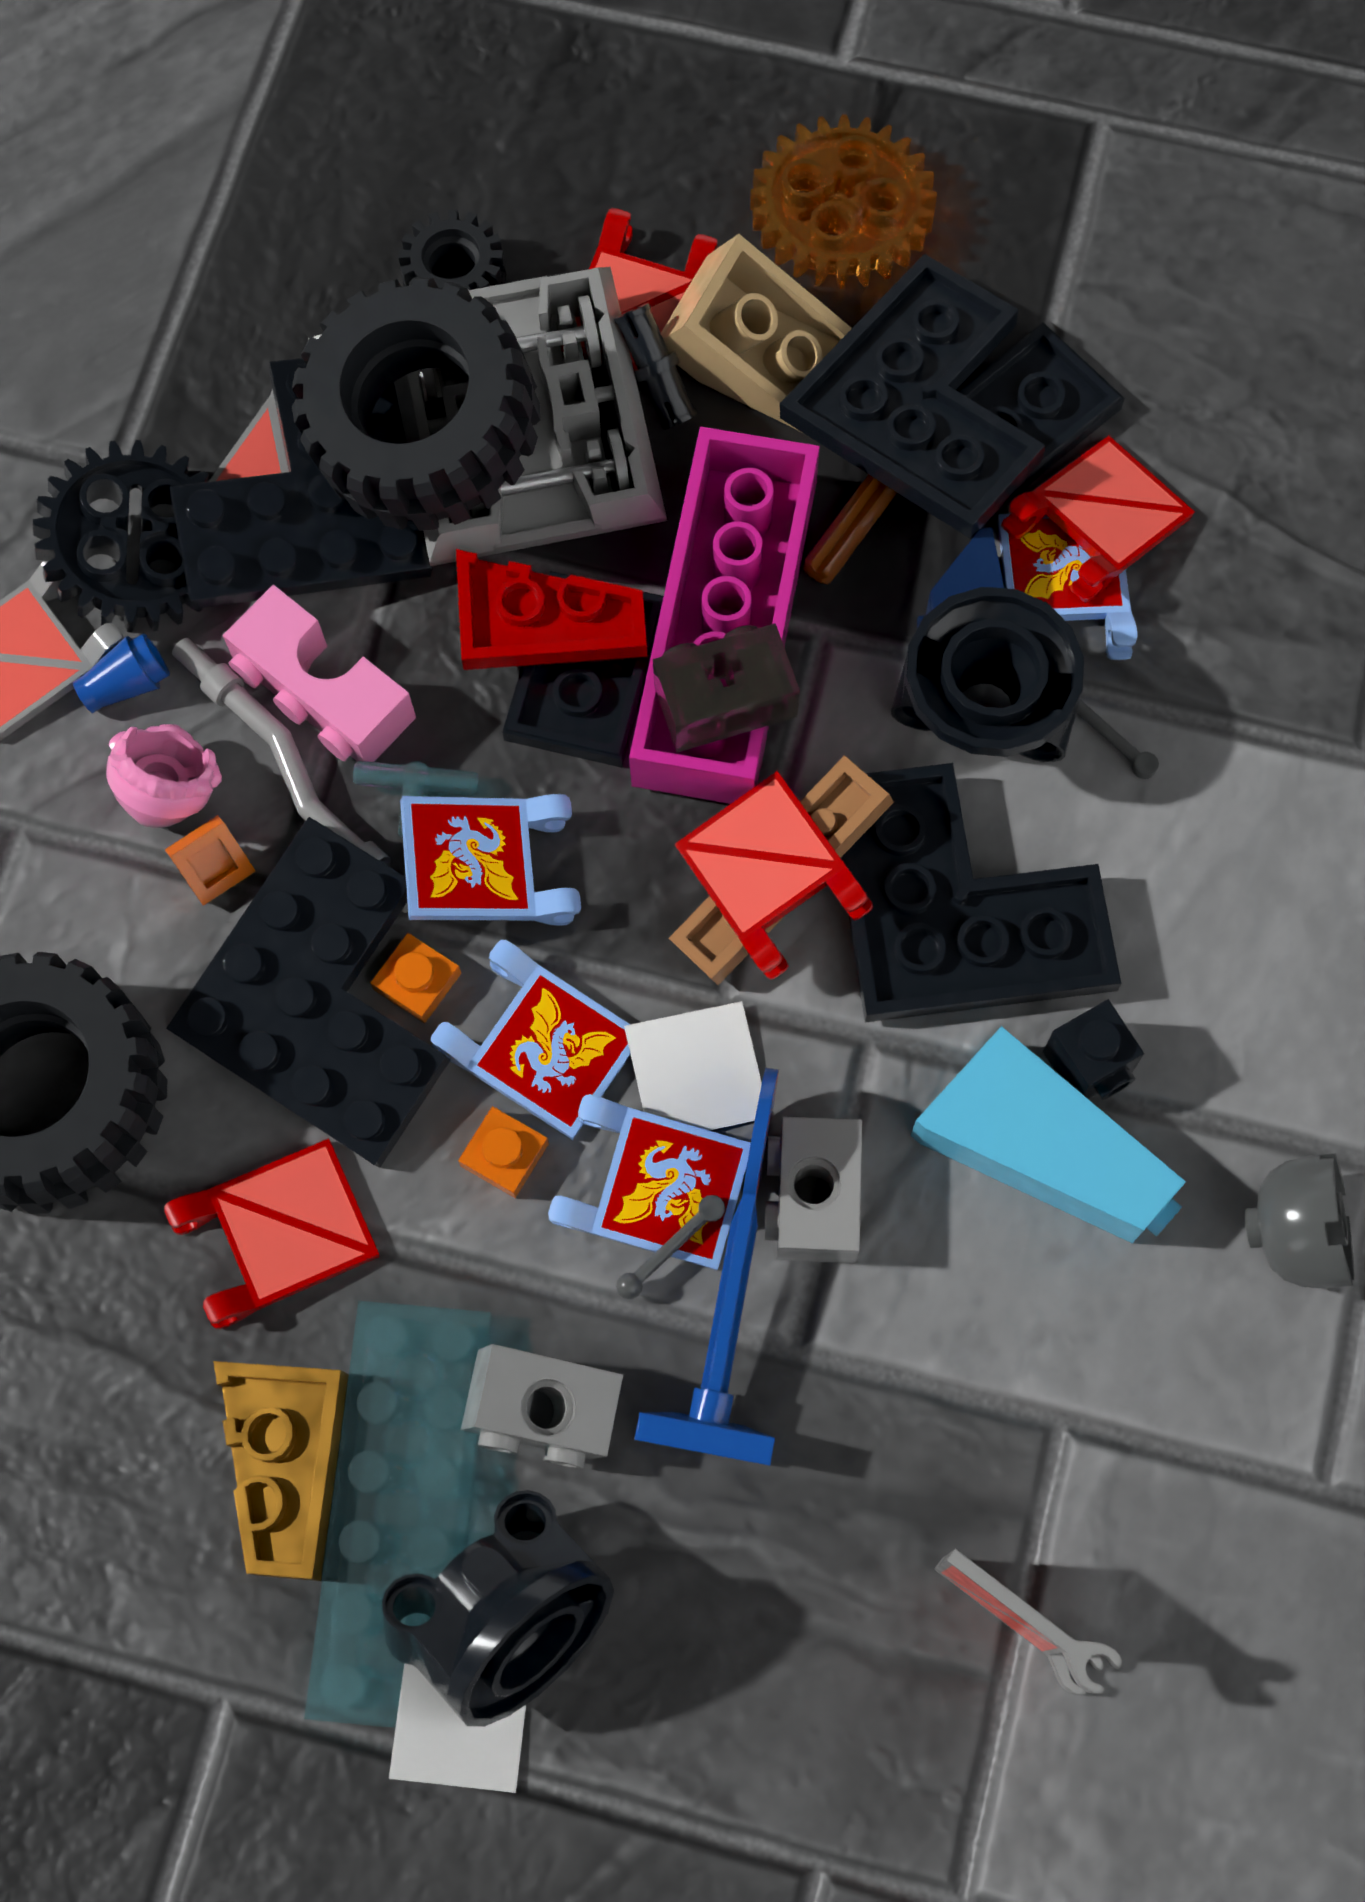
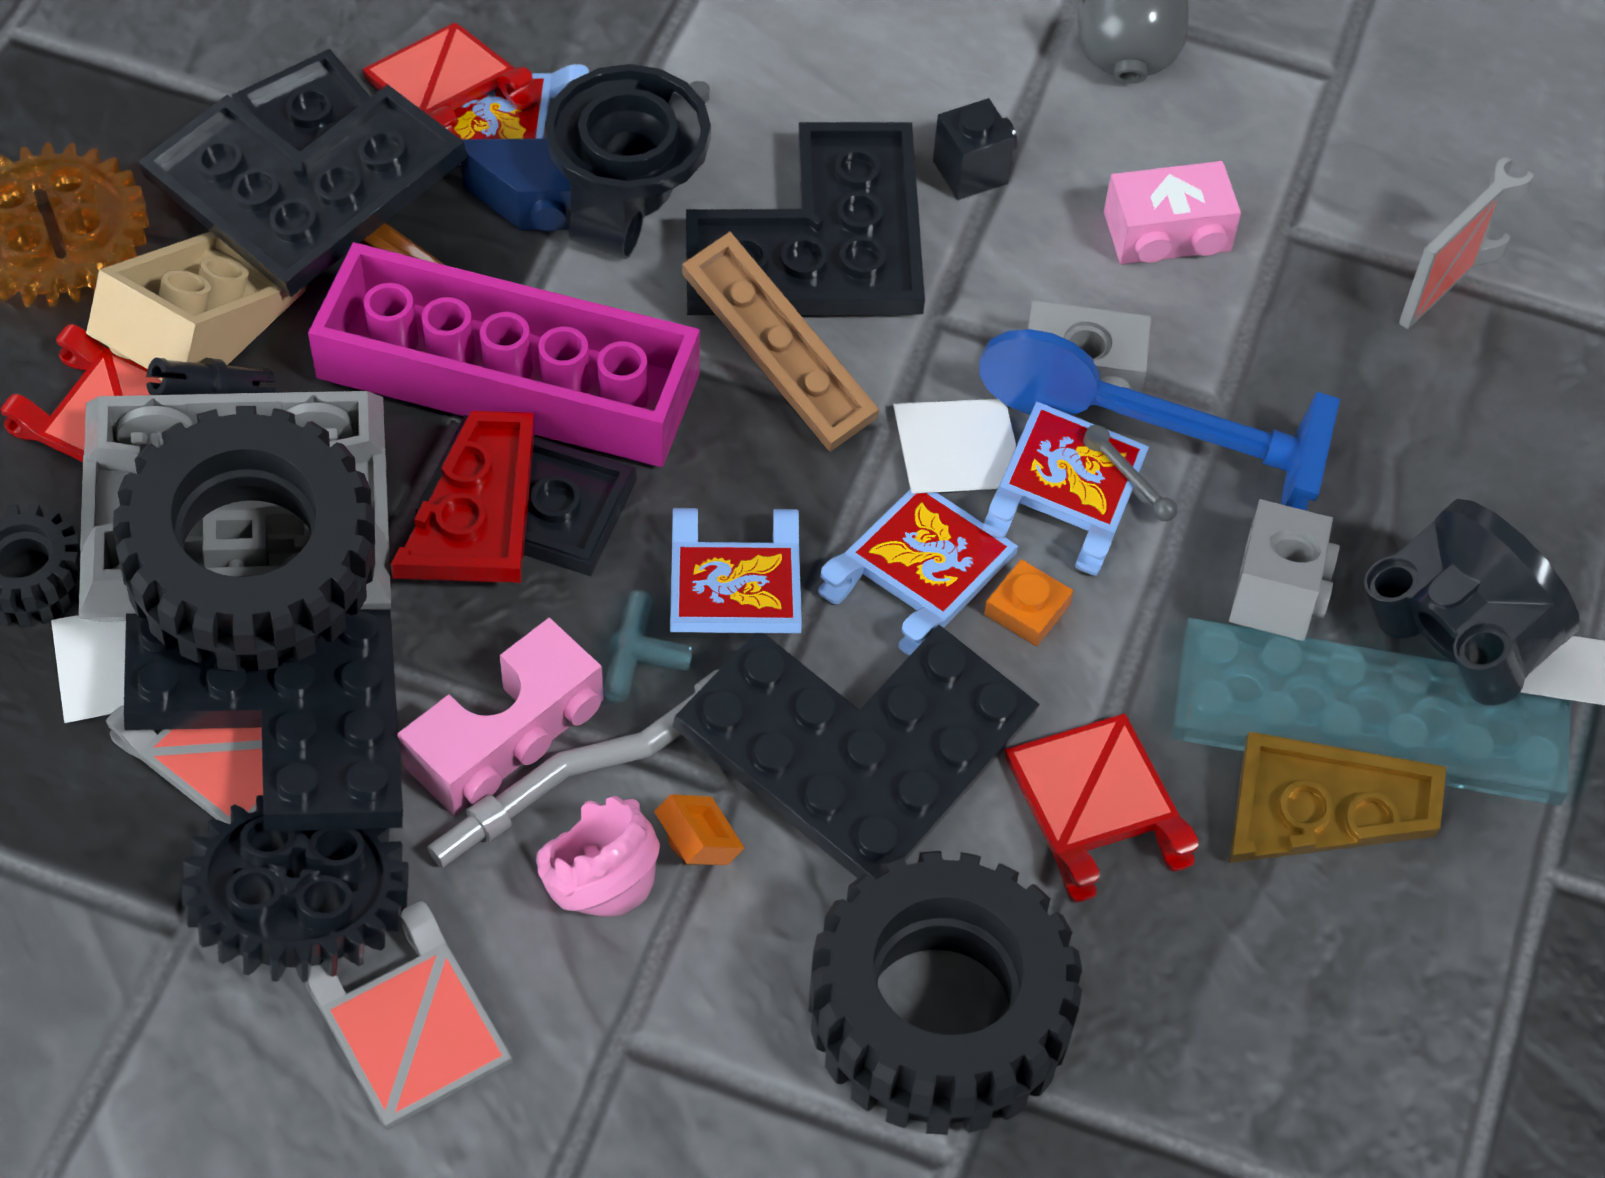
camera: 90 degrees left, 15 degrees down
(123, 673) = (461, 909): blue cone -> none
(416, 977) = (846, 660): orange plate -> none
(757, 693) = (613, 323): clear smoke brick -> none
(764, 862) = (776, 343): coral flag -> none
(1038, 1281) = (1171, 212): none -> bright pink brick
(1049, 1141) = (1044, 194): medium azure slope -> none

